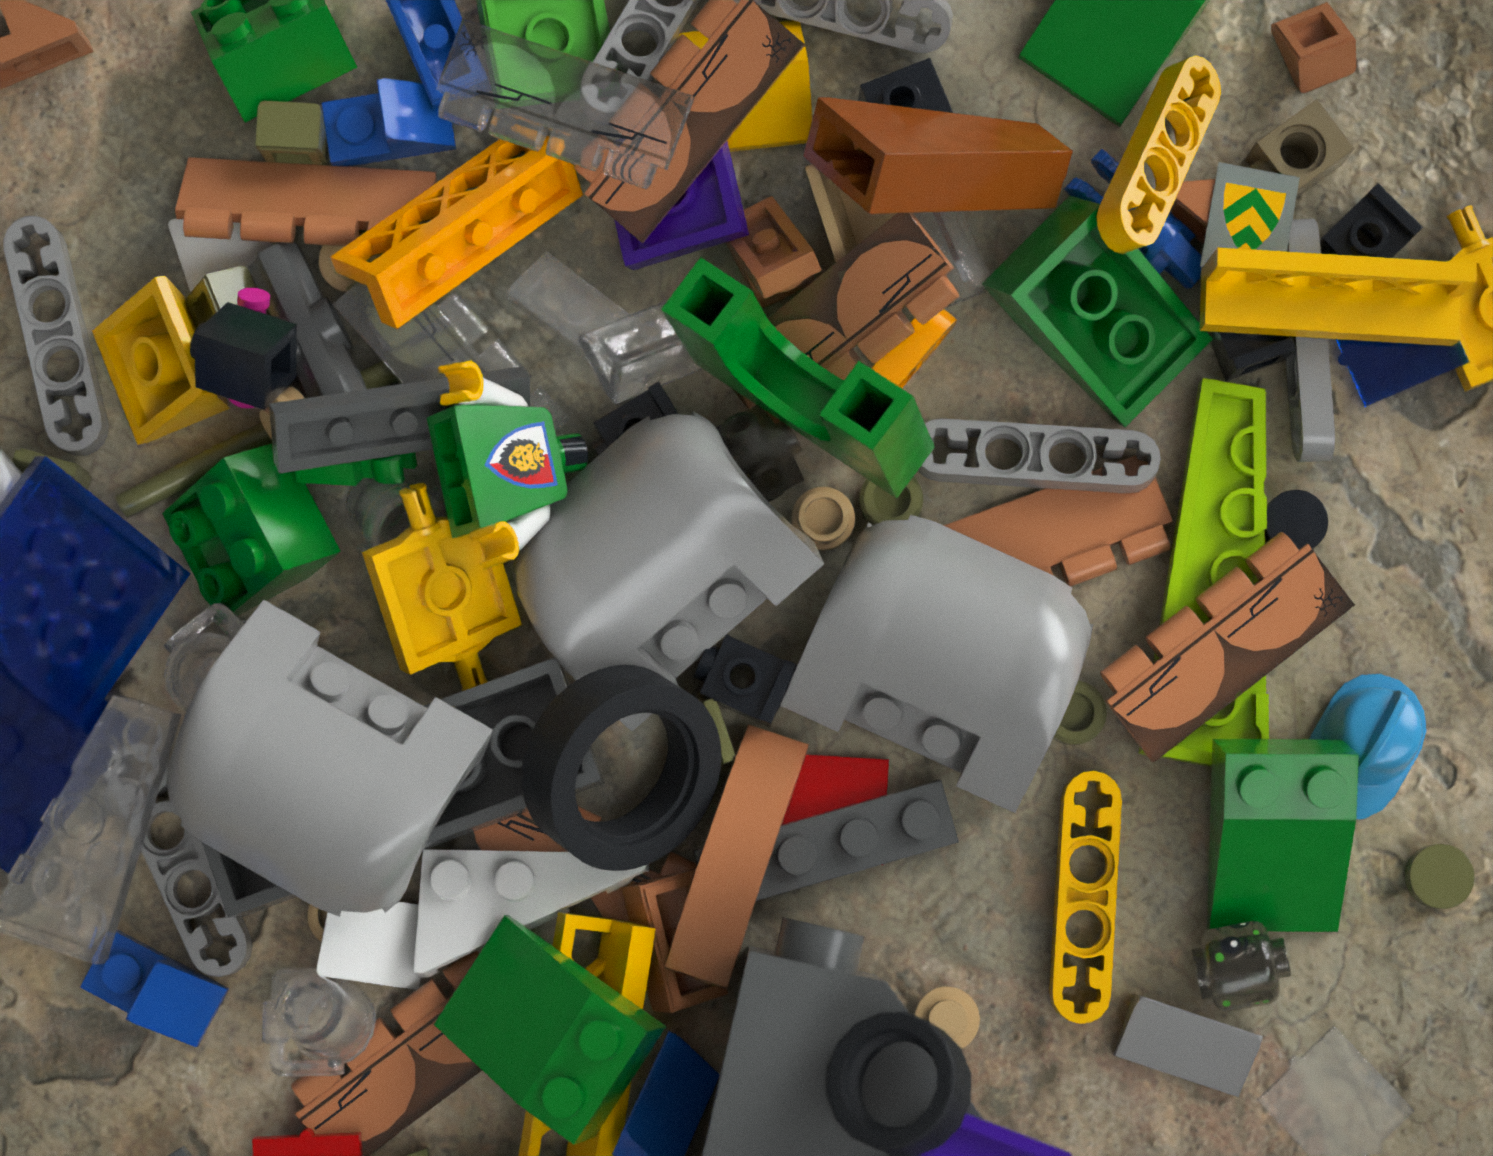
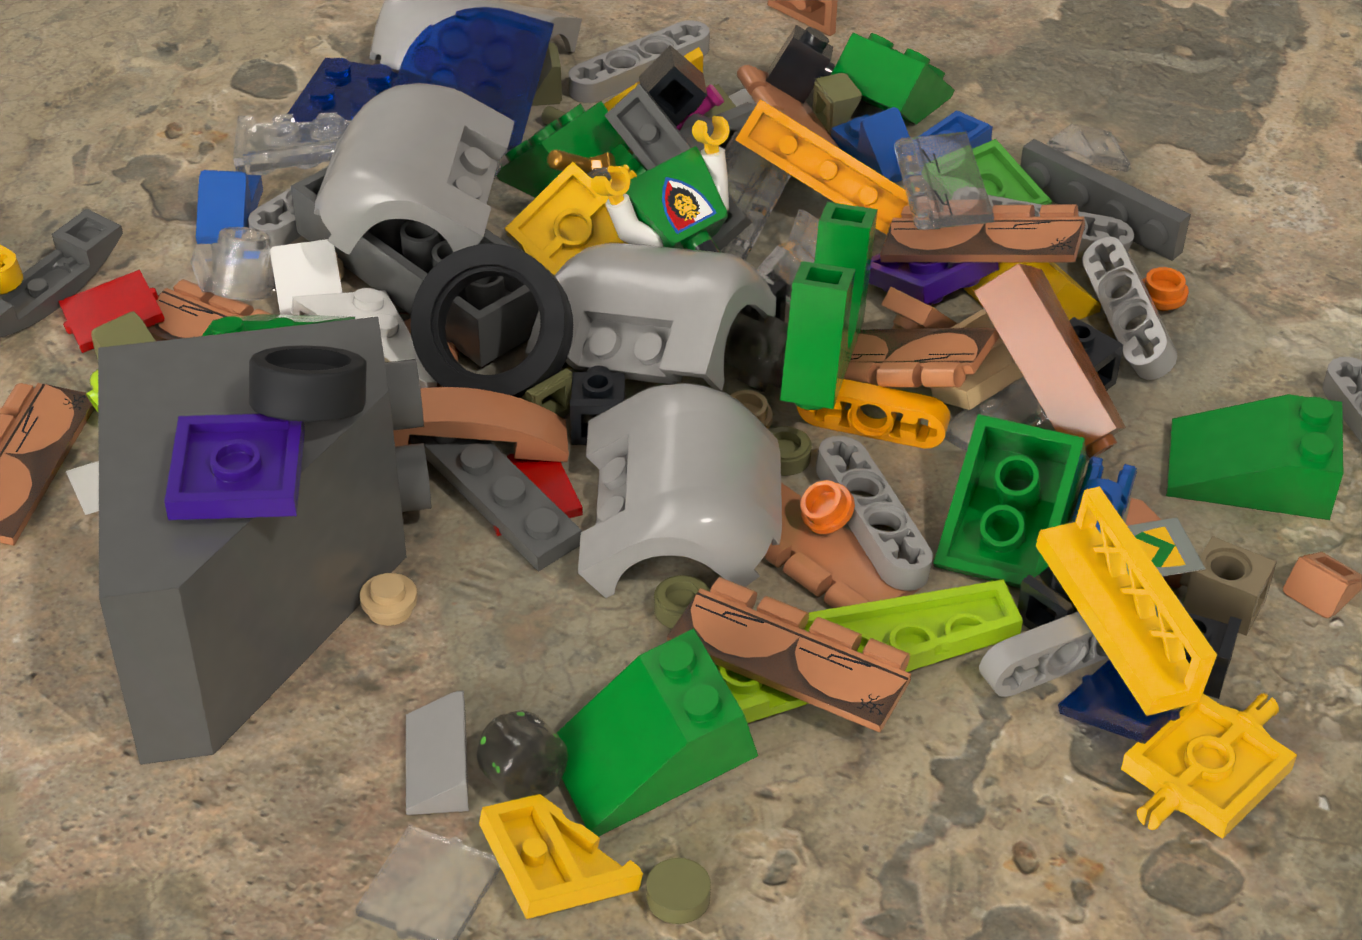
camera: 65 degrees right, 40 degrees down
(202, 145) = (800, 61): none -> black brick
(335, 531) = (560, 160): none -> pearl gold bar
(1024, 505) = (826, 506): none -> orange plate
(1095, 897) = (536, 660): yellow beam -> none
(1169, 163) = (1155, 484): yellow beam -> none
(1298, 516) = (931, 689): black tile -> none
(1363, 982) = (552, 859): none -> yellow wing
(1382, 725) = (769, 801): dark azure piece -> none

